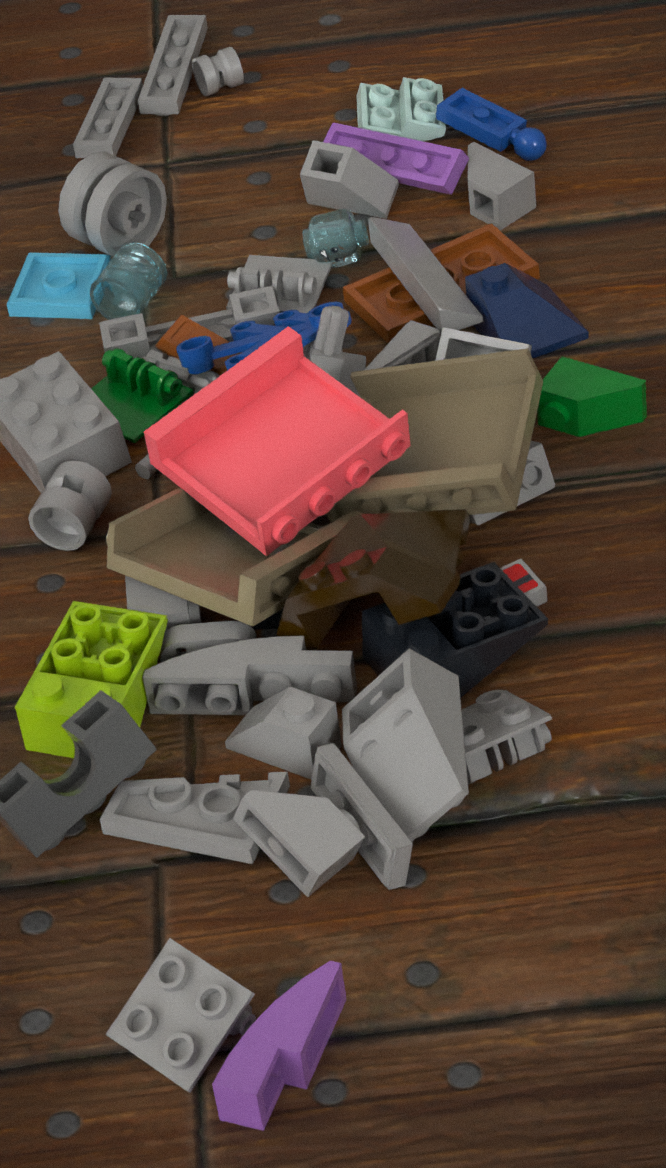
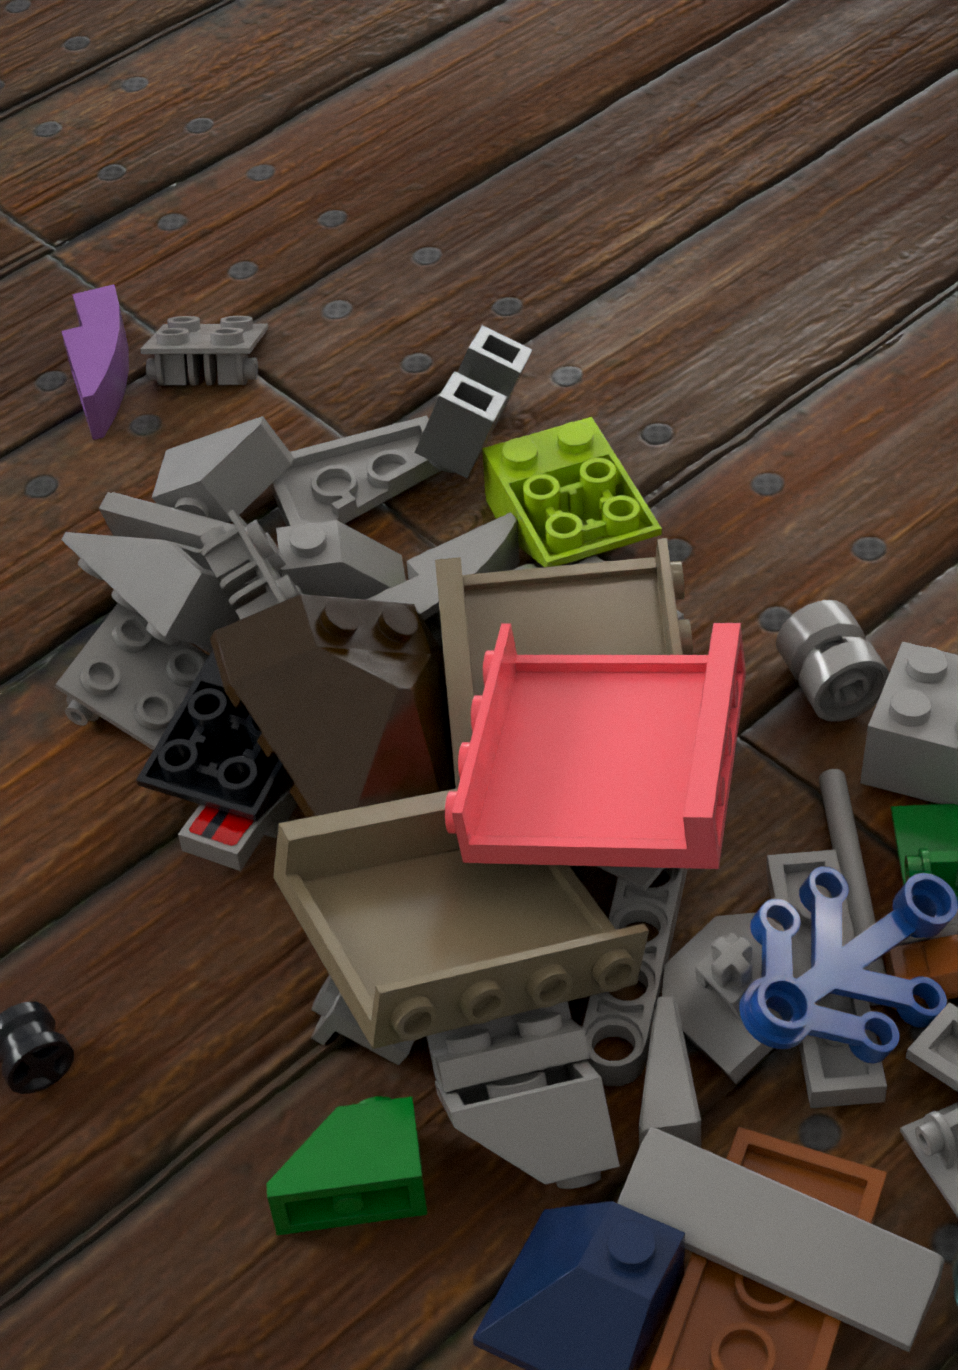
camera: 140 degrees right, 5 degrees up
(372, 641) = (242, 556): none -> light grey hinge

